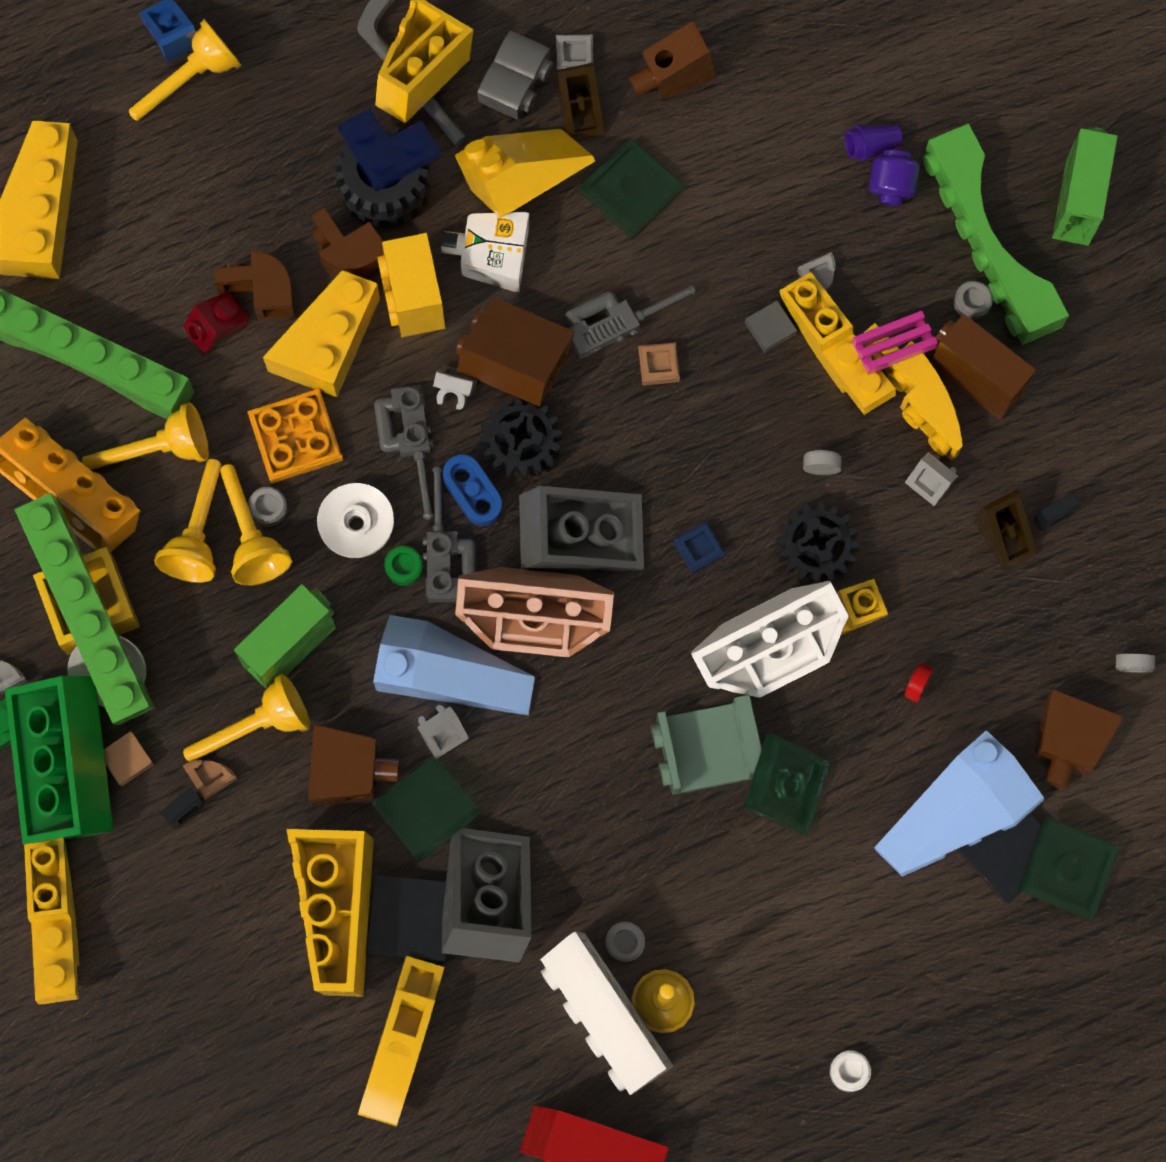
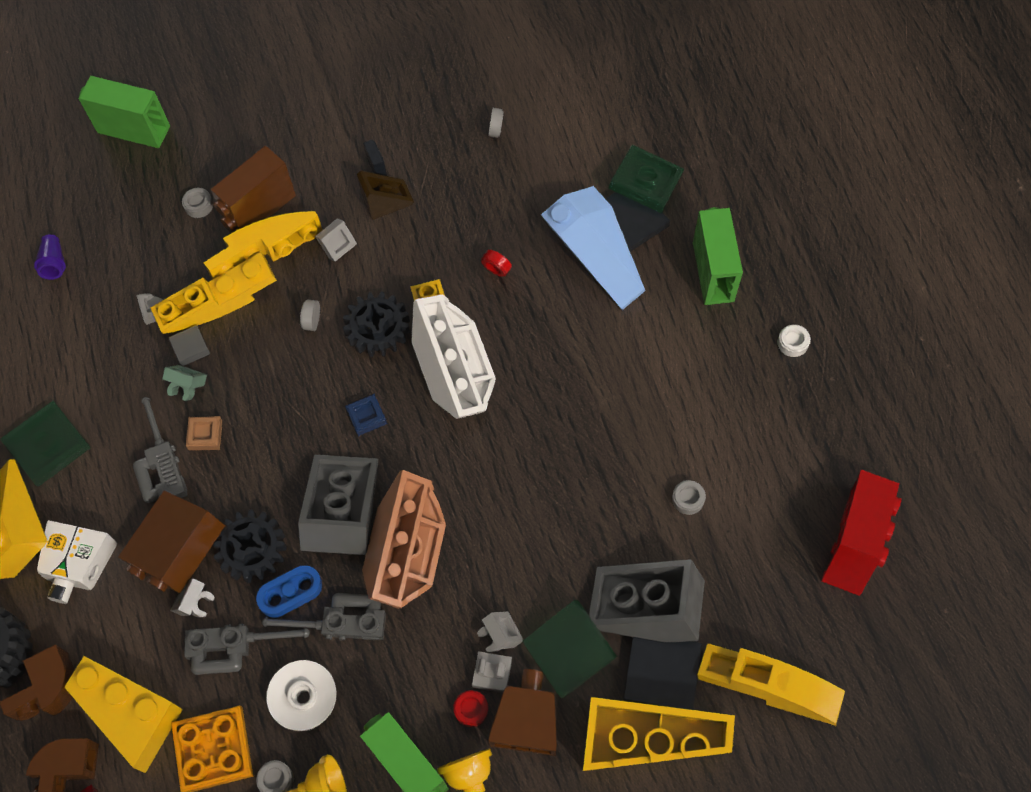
camera: 80 degrees left, 10 degrees down
(355, 707) = (471, 708): none -> red tile
(397, 726) = (491, 672): none -> light grey tile
(404, 565) = (348, 657): green tile -> none
(411, 285) = (91, 625): yellow brick -> none
(438, 666) = (442, 632): light blue wedge -> none
(605, 1012) = (752, 509): white slope -> none
(663, 1000) = (737, 469): yellow piece -> none
(708, 746) = (532, 417): sand green panel -> none
(723, 328) = (185, 378): none -> sand green tile
(786, 784) = (570, 360): clear green tile -> none
(894, 177) = (84, 243): dark purple head -> none
(923, 330) = (217, 229): dark pink tile -> none
(951, 961) = (717, 256): none -> bright green brick
(1028, 300) = (89, 198): bright green arch -> none
(1072, 737) = (547, 166): reddish brown torso -> none

